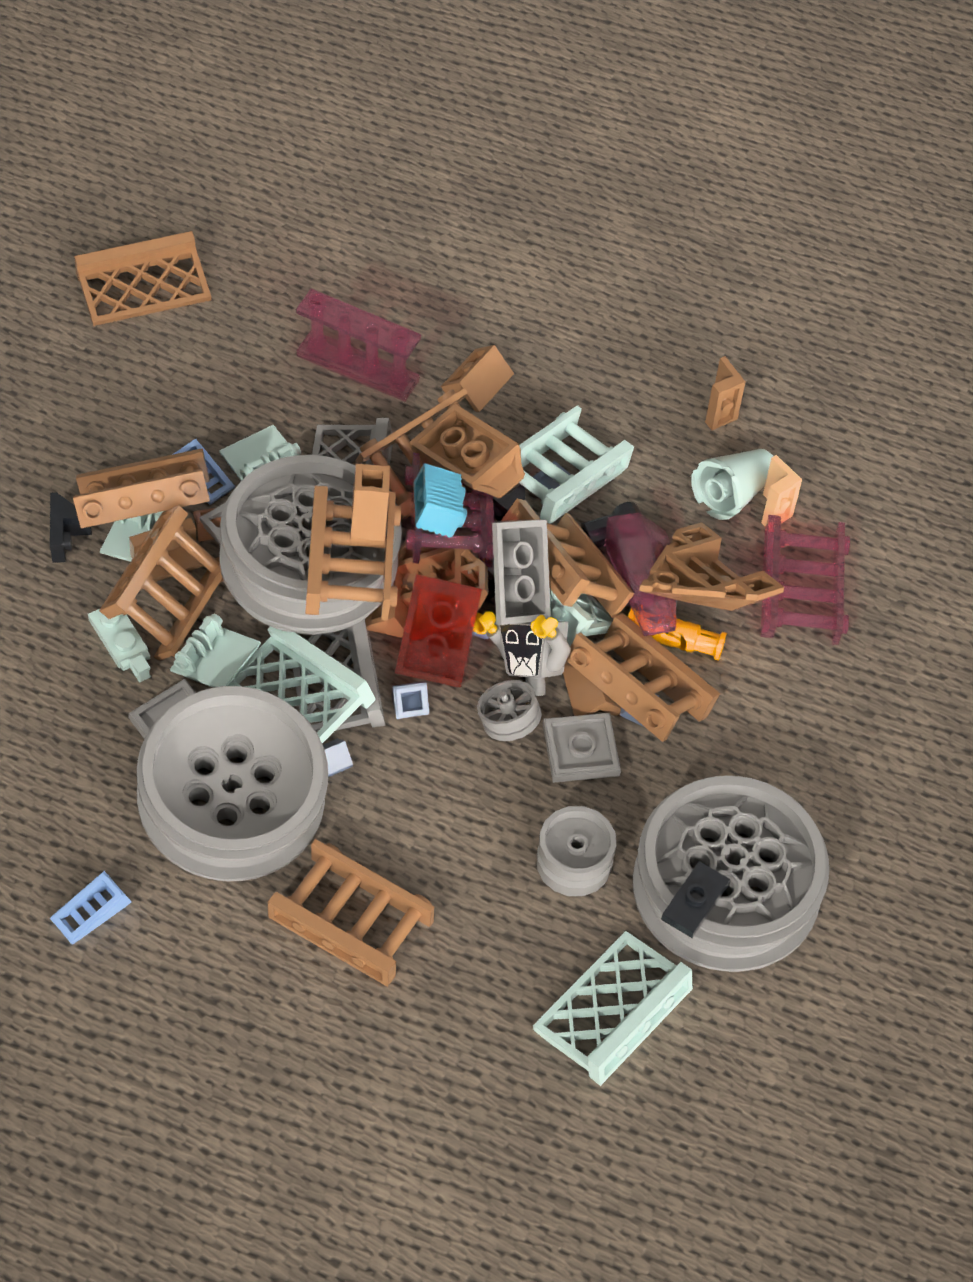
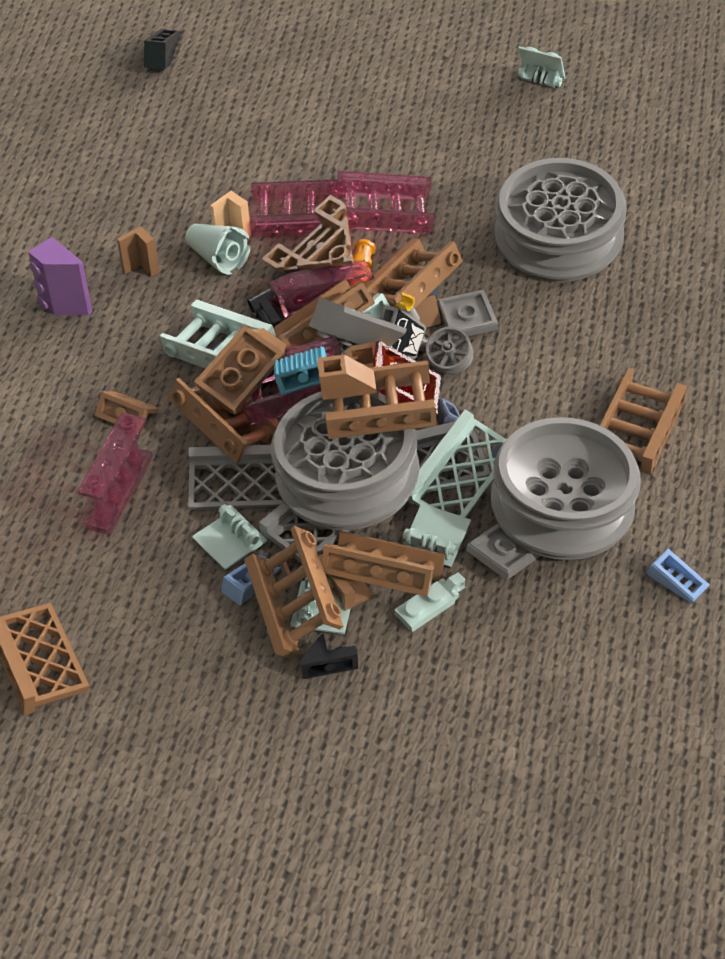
camera: 90 degrees left, 5 degrees down
(576, 851) = (559, 302): light grey wheel -> none
(641, 1017) = (674, 265): light aqua fence -> none
(677, 304) = (59, 279): none -> medium lavender slope
(695, 899) = (604, 212): black plate -> none
(826, 659) = (386, 186): none -> clear pink fence

